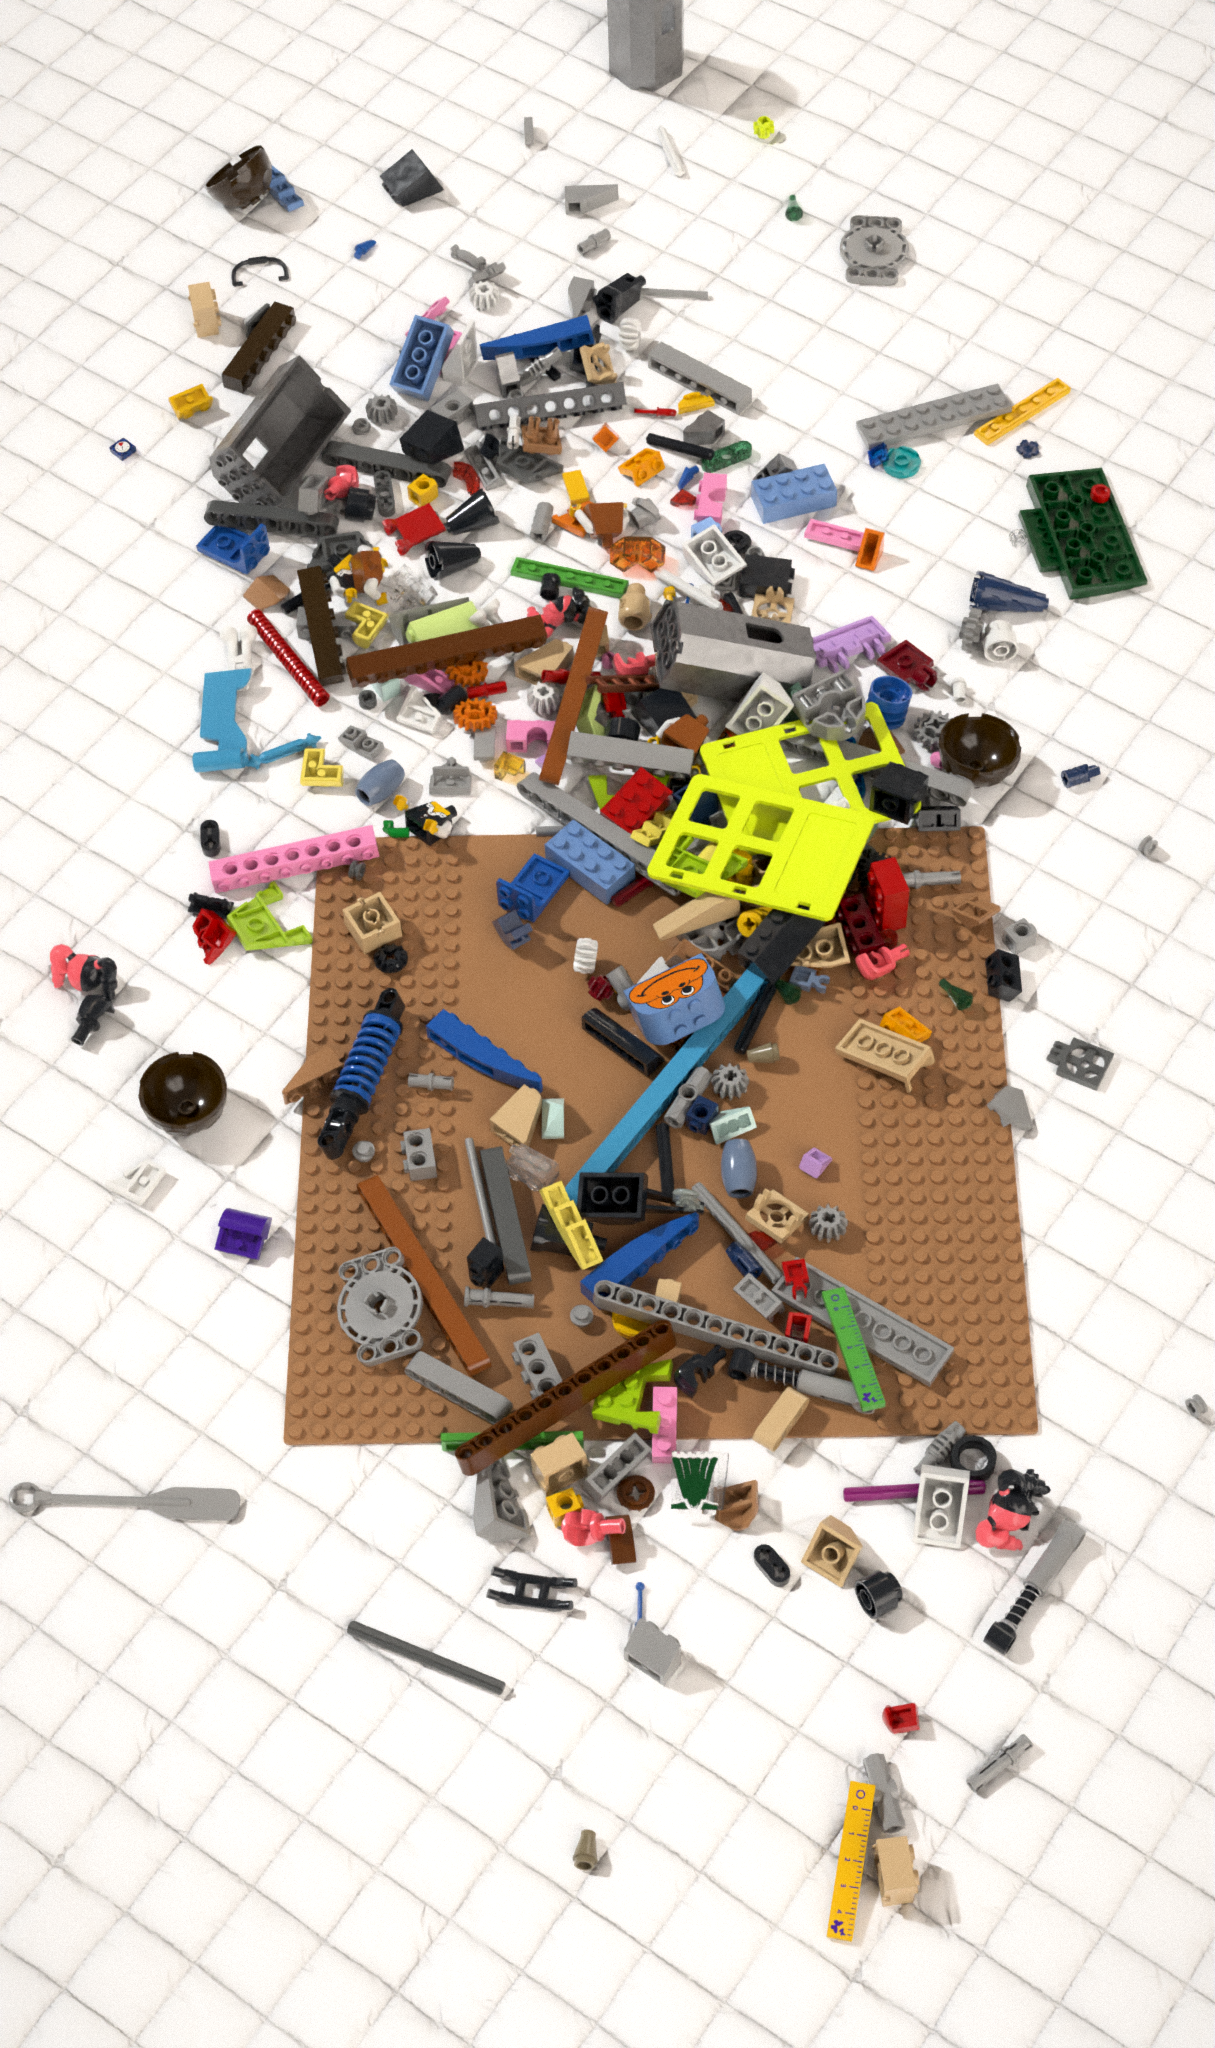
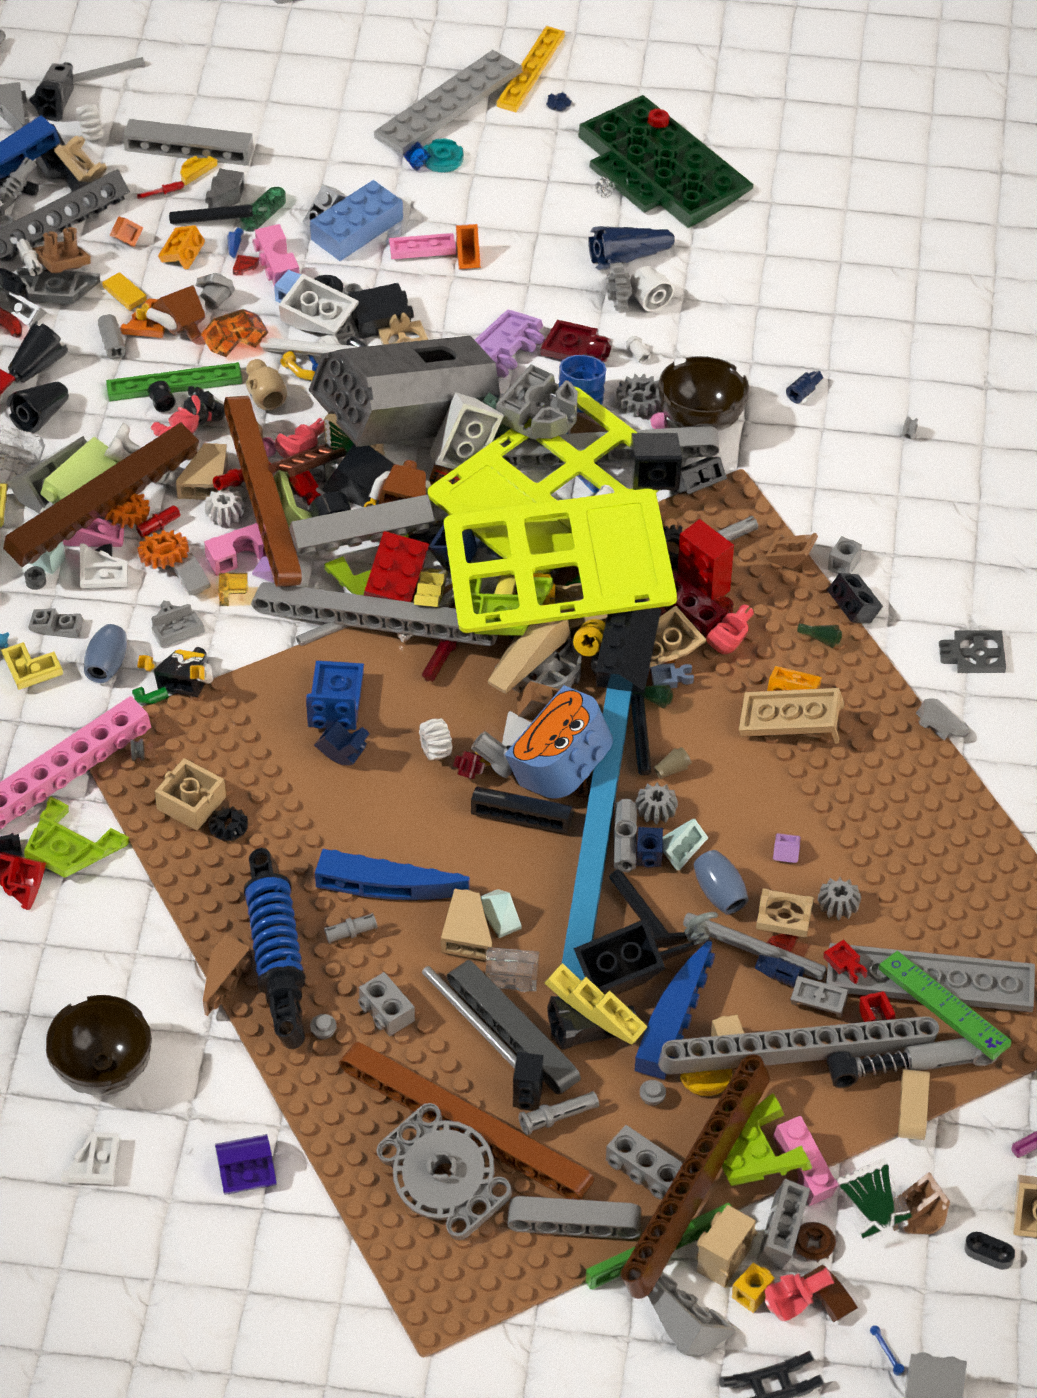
camera: 30 degrees left, 5 degrees down
(447, 702) = (127, 543): black brick -> none
(590, 861) = (382, 645): medium blue brick -> none
(703, 1365) = (804, 1094): black piece -> none

